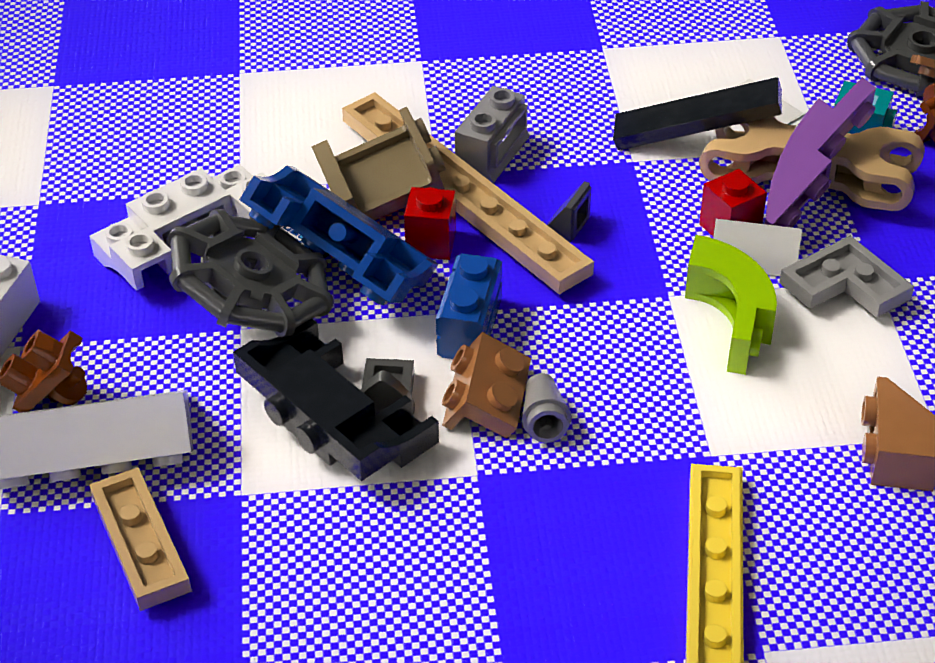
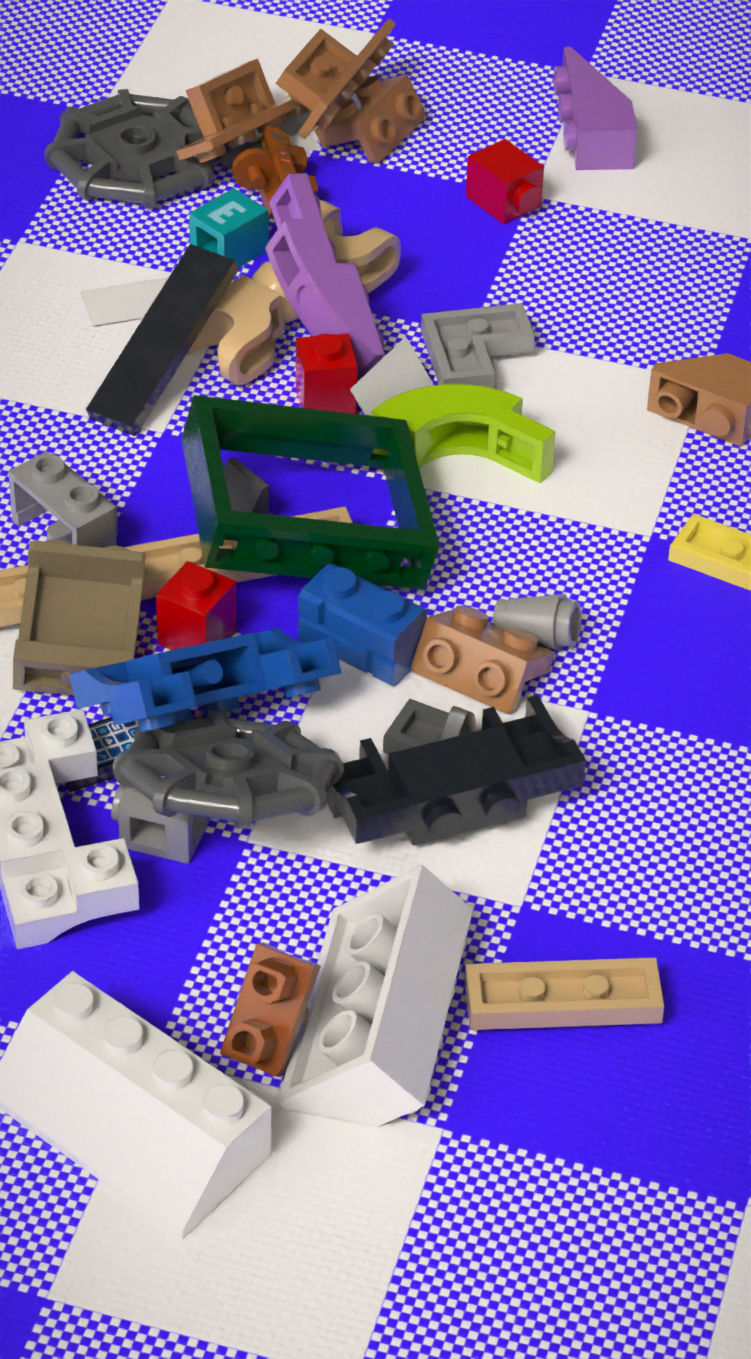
camera: 70 degrees left, 0 degrees up
(520, 266) = (303, 544): none -> dark green window

